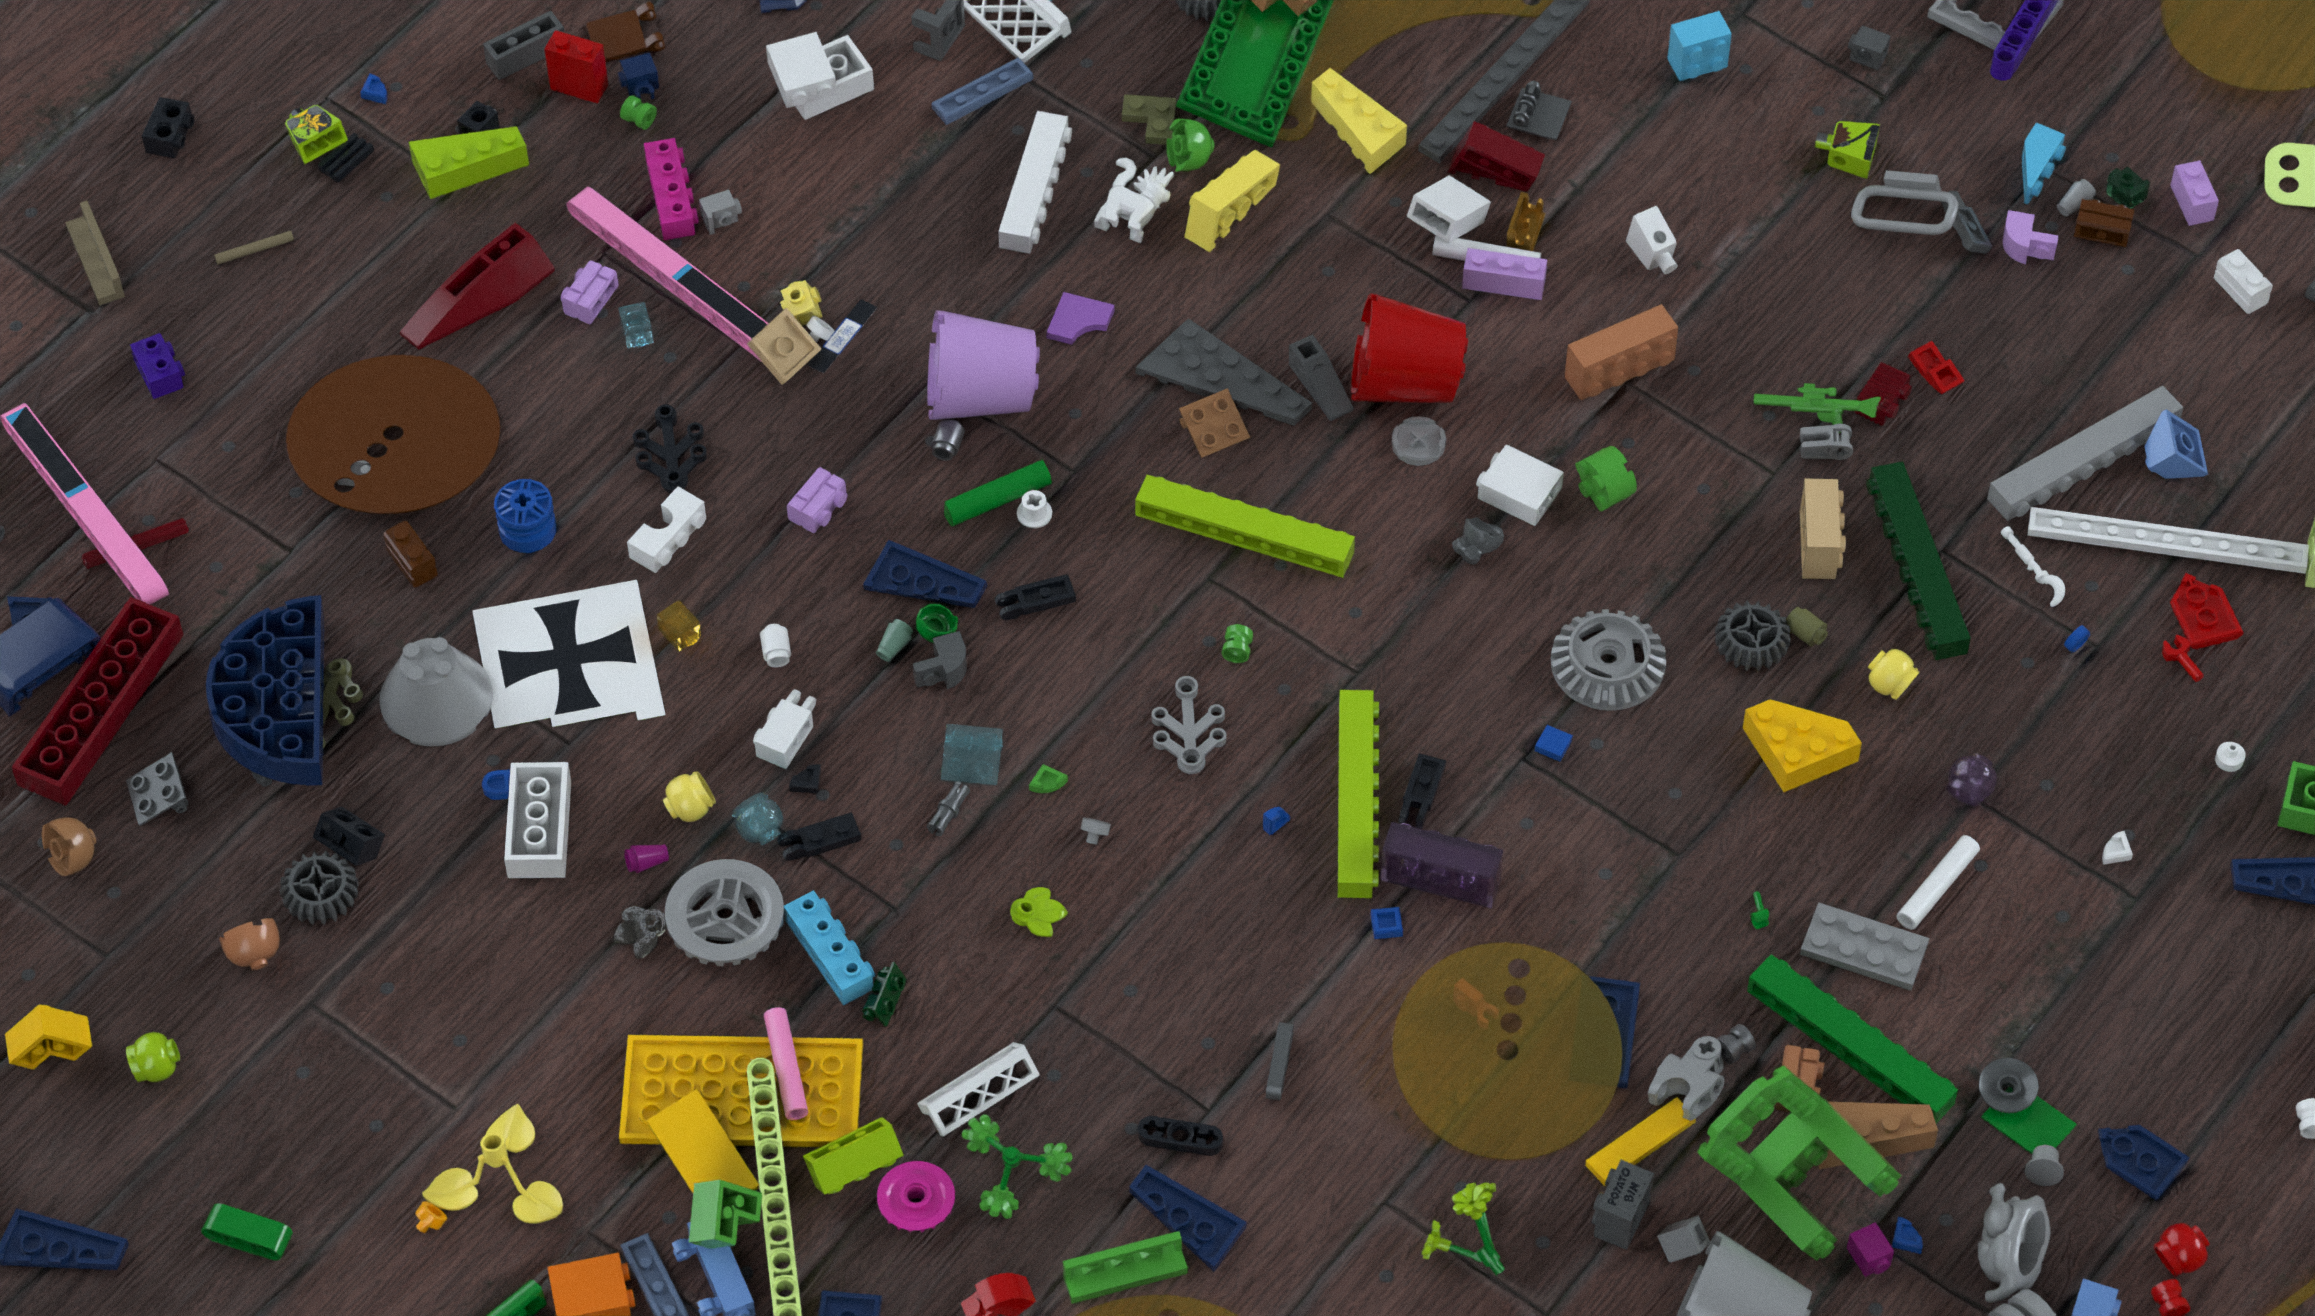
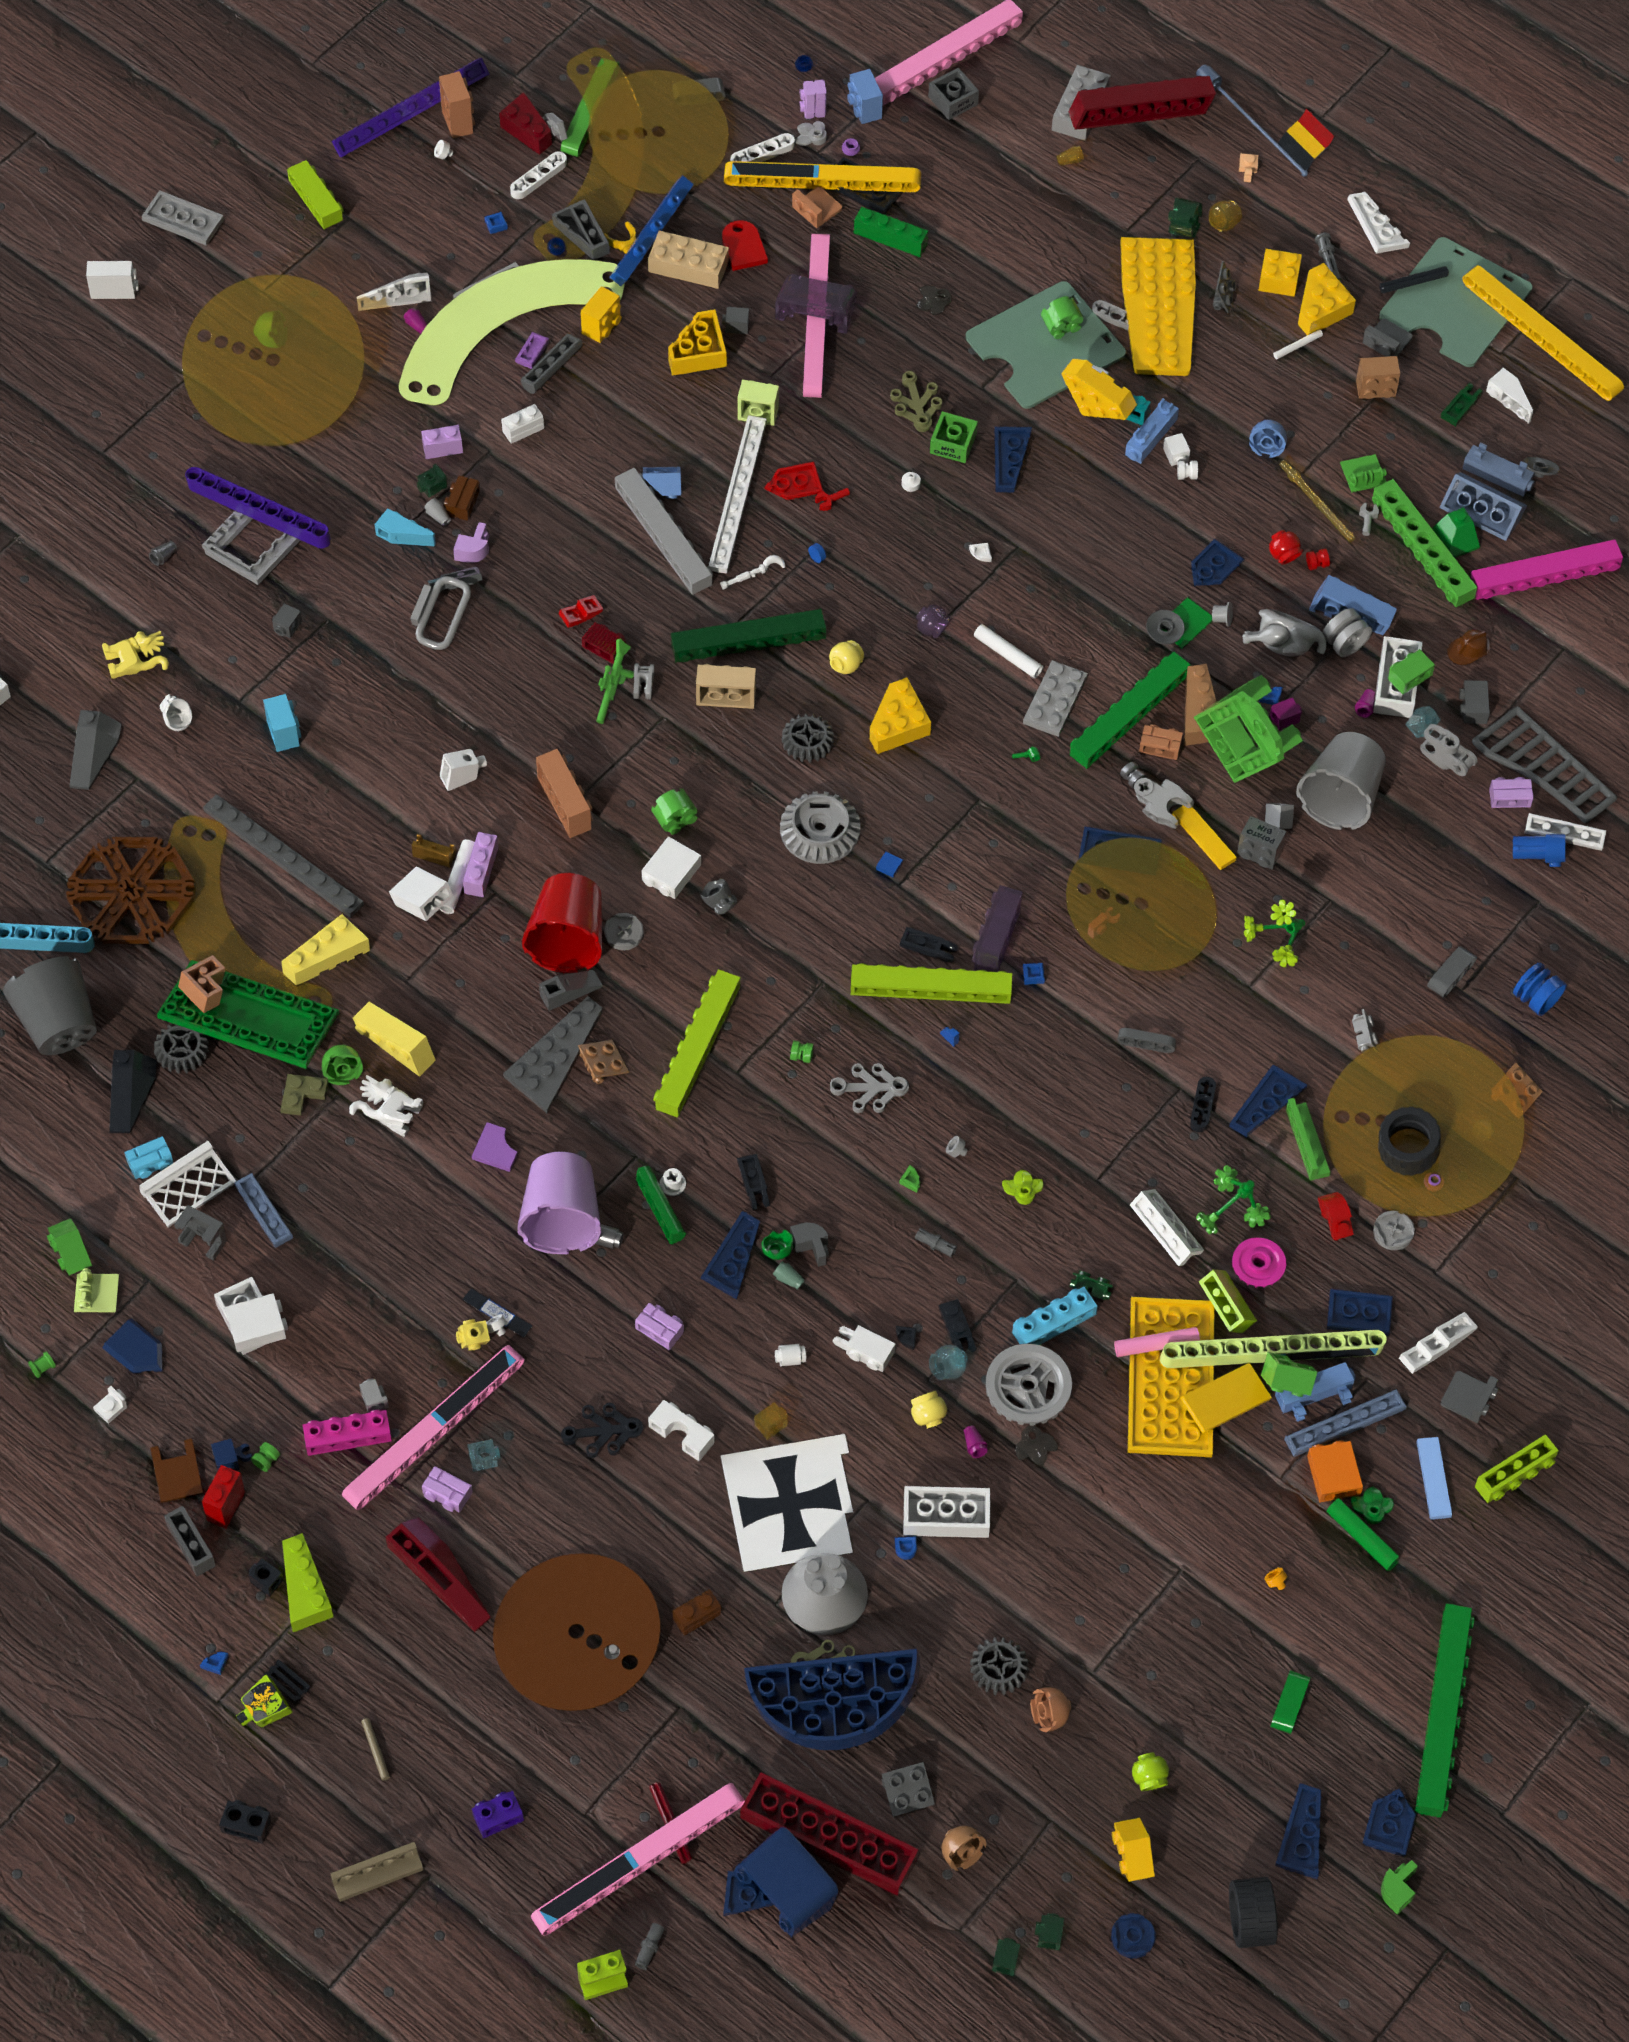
camera: 90 degrees left, 5 degrees up
(348, 835) = (957, 1644): black brick -> none
(511, 1132) = (1206, 1526): light yellow plant -> none
(525, 515) = (668, 1538): blue wheel -> none
(784, 346) = (515, 1346): tan tile -> none
(972, 754) = (891, 1225): clear light blue hinge -> none
(1034, 182) = (363, 1172): white brick -> none
(1496, 157) = (370, 862): dark red wedge -> none
(1538, 112) = (325, 835): dark grey hinge -> none
(1807, 626) = (800, 705): olive brick -> none
(1850, 146) = (380, 640): lime torso -> none

